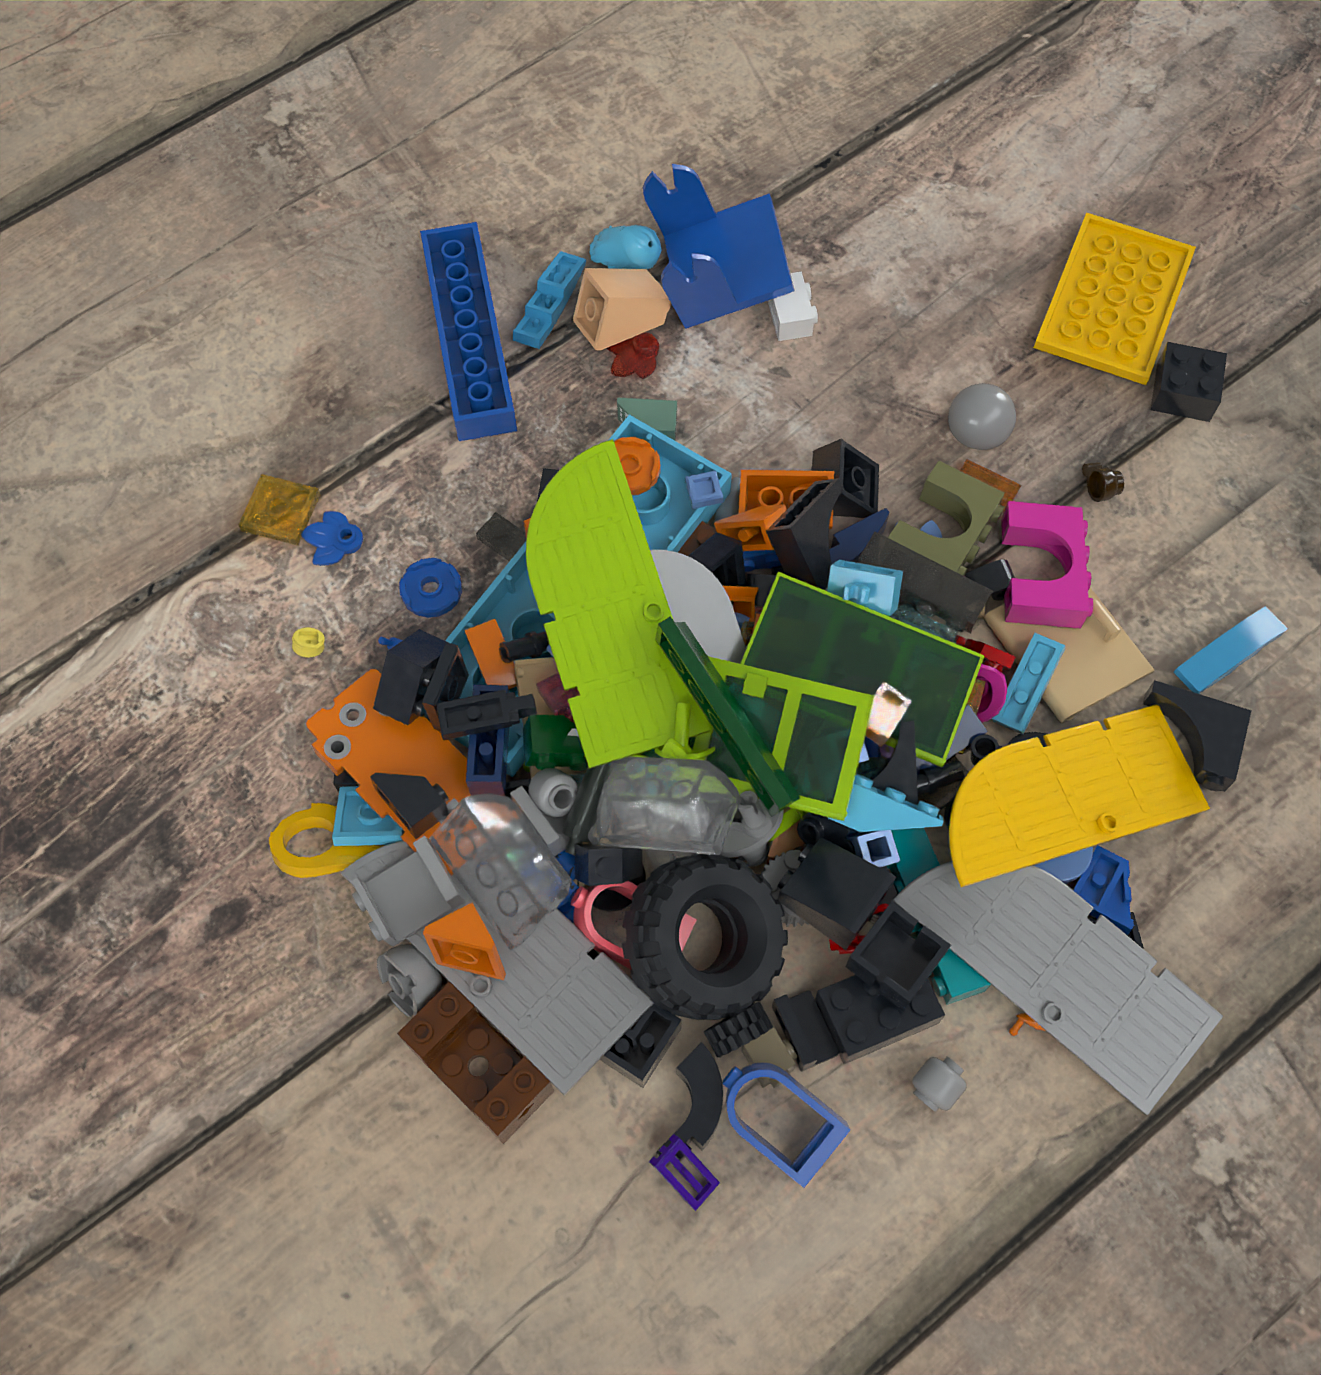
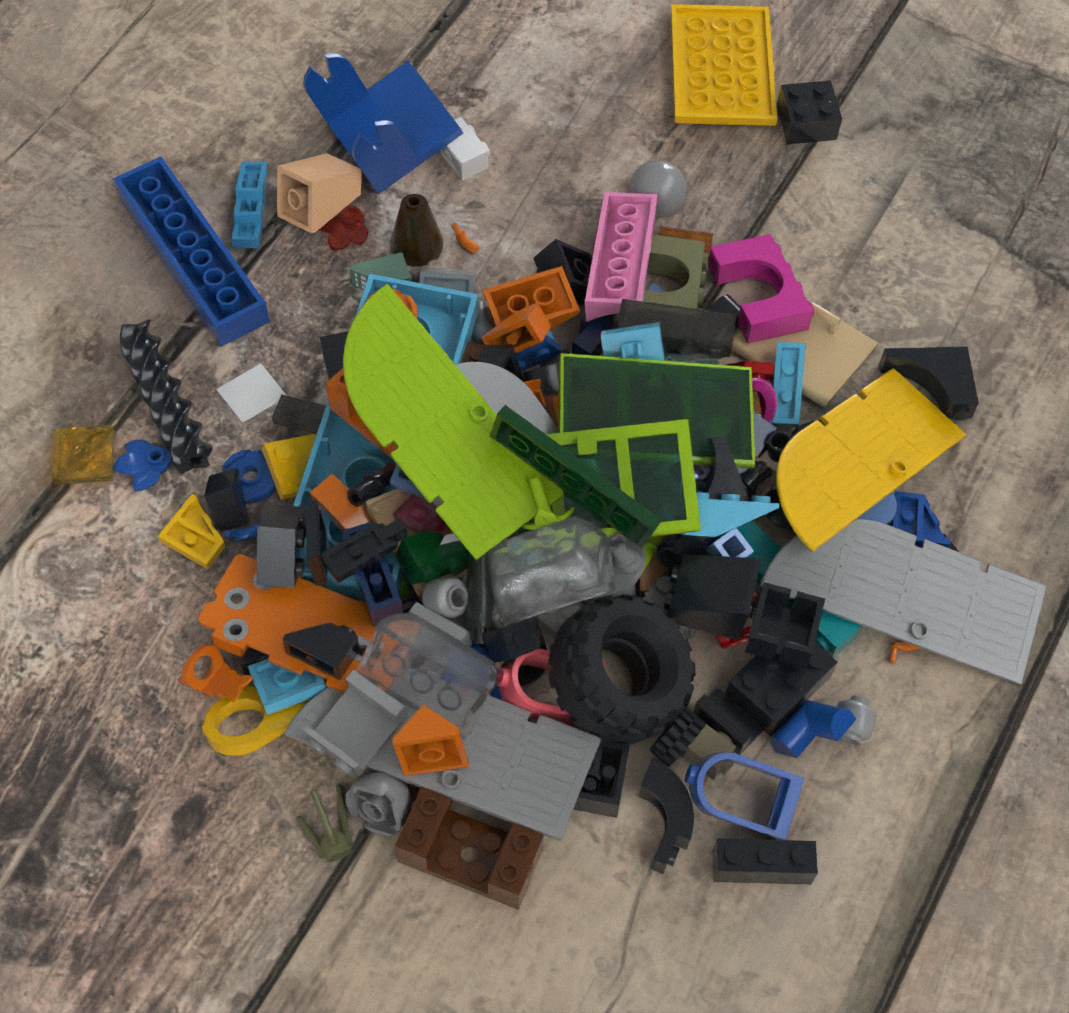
camera: 25 degrees left, 5 degrees down
(308, 642) = (160, 558): light yellow tile -> none
(310, 790) = (218, 680): none -> orange hair
(348, 1001) = (333, 844): none -> olive plant
(349, 628) = (193, 534): none -> yellow wing
(376, 482) = (161, 395): none -> black piece
(394, 604) = (226, 499): none -> black slope
(468, 584) = (288, 462): none -> yellow wing
(469, 500) = (251, 393): none -> white sticker
(626, 247) = (300, 140): medium azure piece -> none
(667, 1155) = (666, 858): dark purple tile -> none
(702, 384) = (416, 232): none -> dark brown cone
(704, 489) = (461, 313): medium blue tile -> none
(715, 446) = (449, 278): none -> light grey panel
(752, 406) = (463, 239): none -> orange piece
(774, 1200) = (764, 861): none -> black brick
(802, 534) = (560, 318): black arch -> none
(886, 713) = (699, 436): clear orange tile -> none
(887, 1067) = (810, 721): none -> blue brick
(905, 476) = (620, 252): none -> bright pink arch
(1102, 482) = (775, 210): dark brown piece -> none
(1230, 650) = (930, 308): dark azure slope -> none

